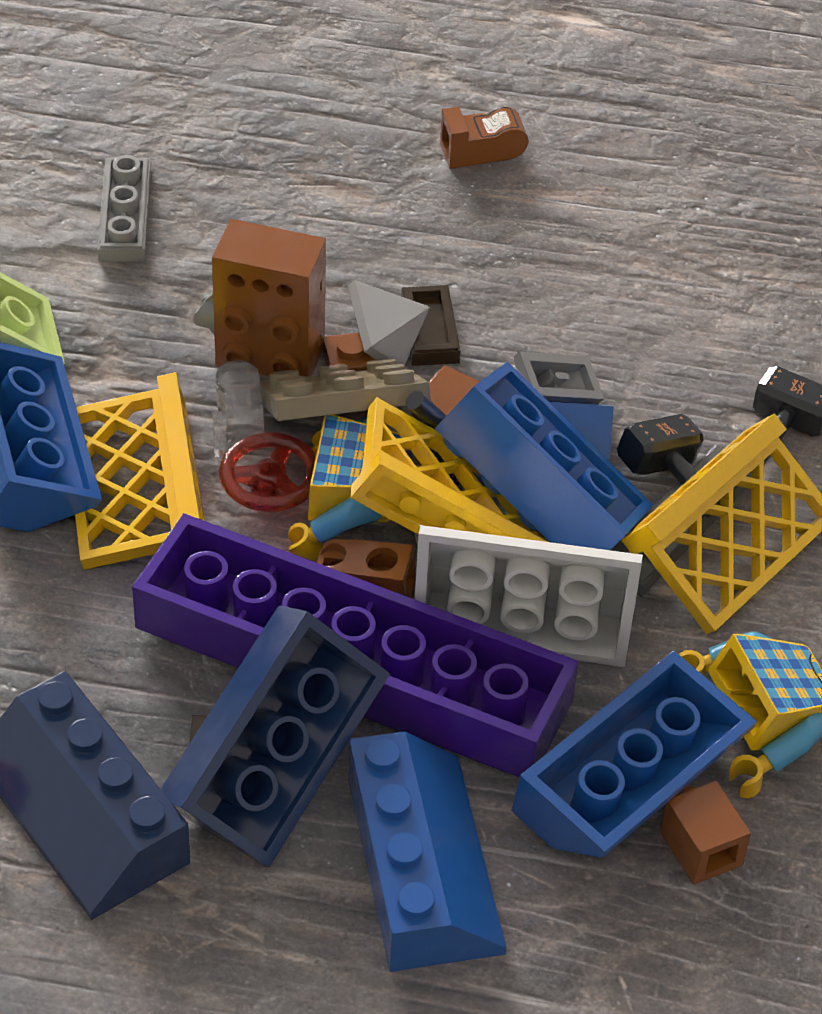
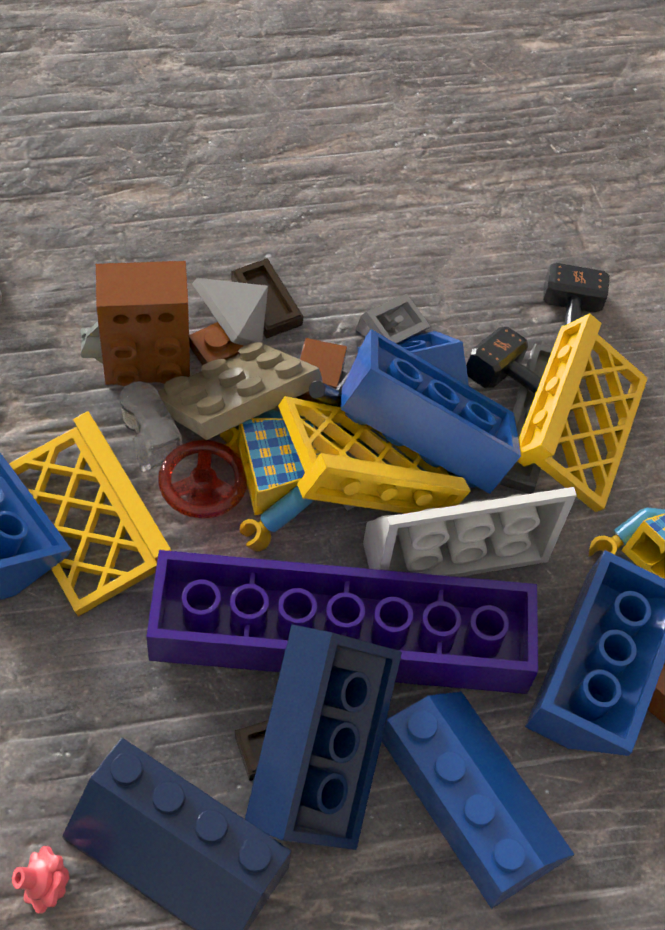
camera: 25 degrees left, 10 degrees up
(373, 561) = (321, 542): dark orange leg -> none
(481, 136) = (235, 115): dark orange leg -> none

